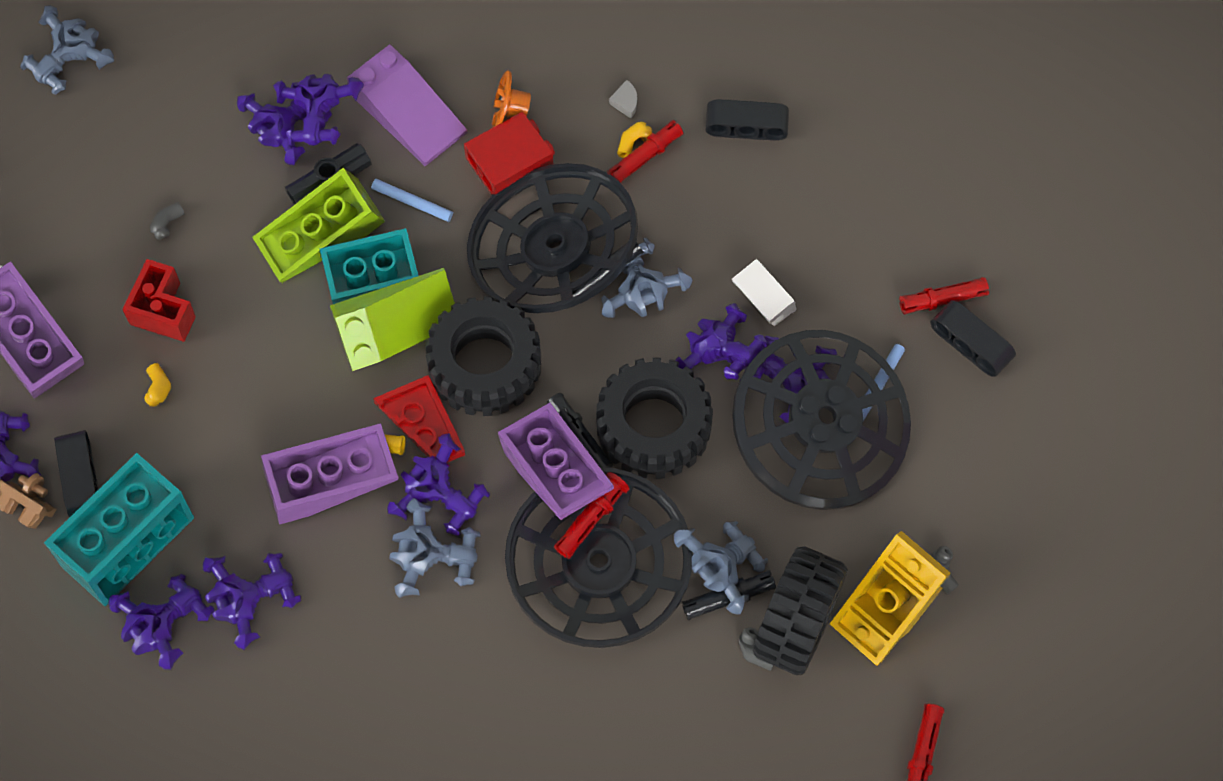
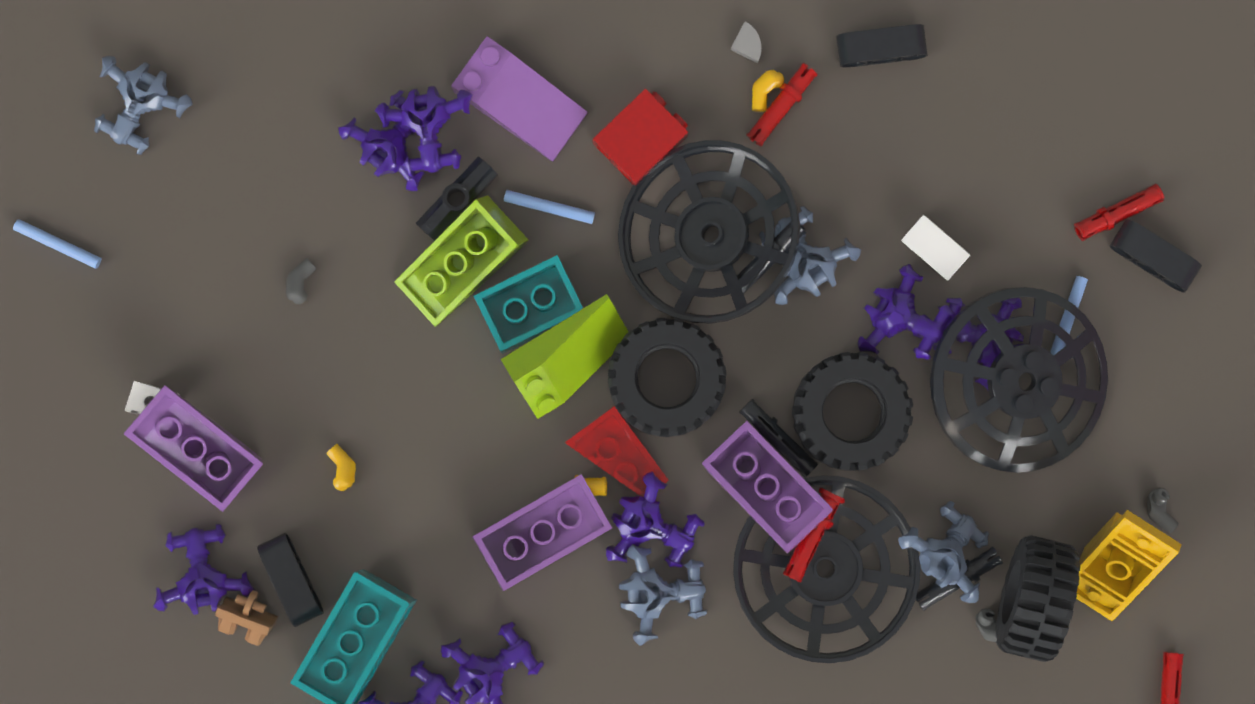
camera: 10 degrees left, 20 degrees up
(154, 303) = (313, 384): red brick -> none
(512, 100) = (630, 75): orange wheel -> none

